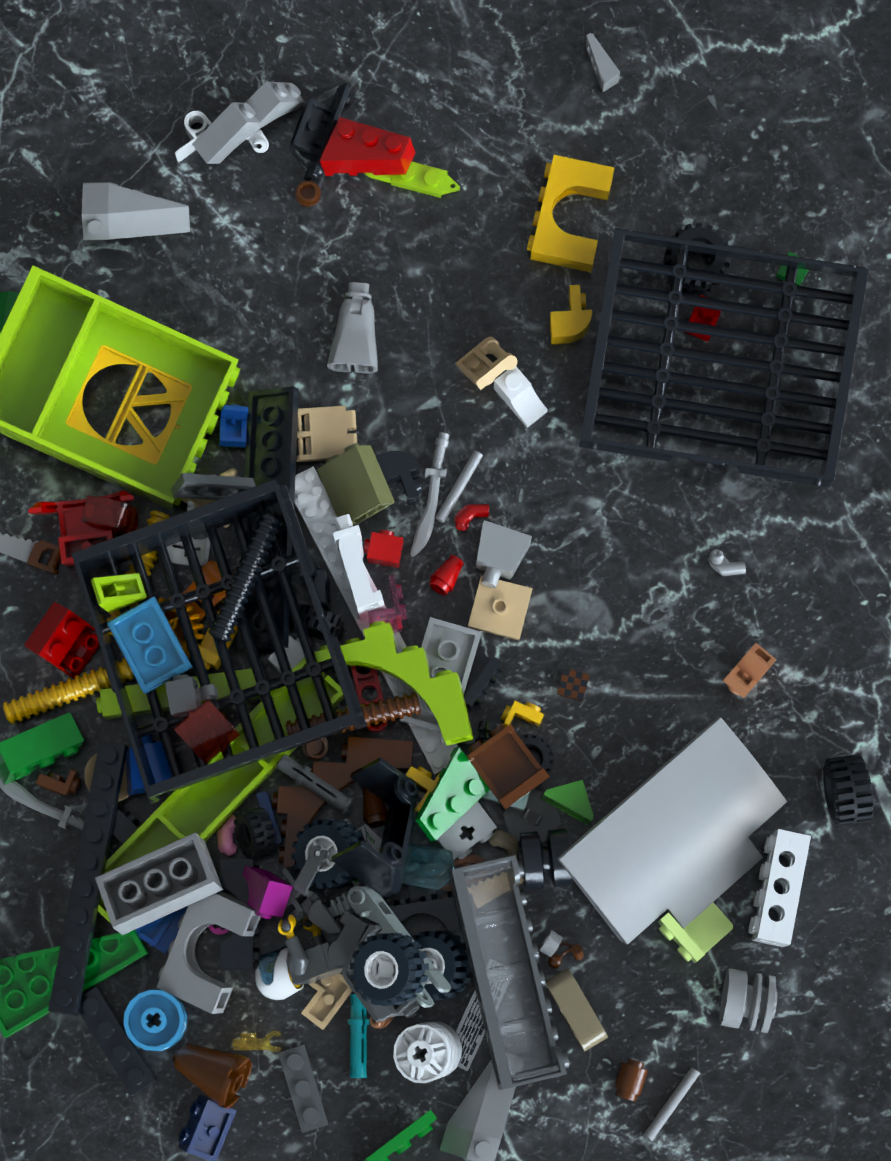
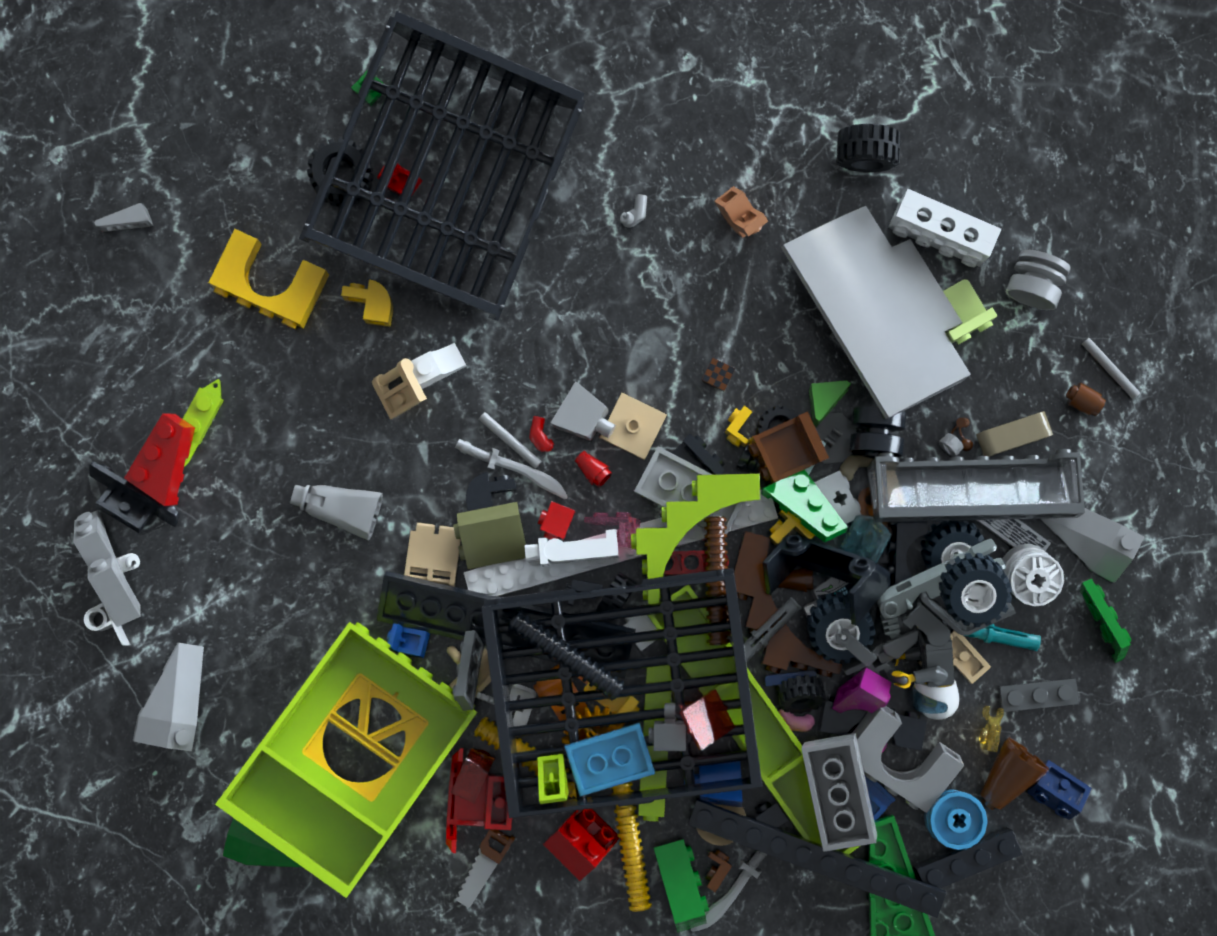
camera: 85 degrees left, 5 degrees up
(307, 193) = (191, 525): reddish brown plate -> none

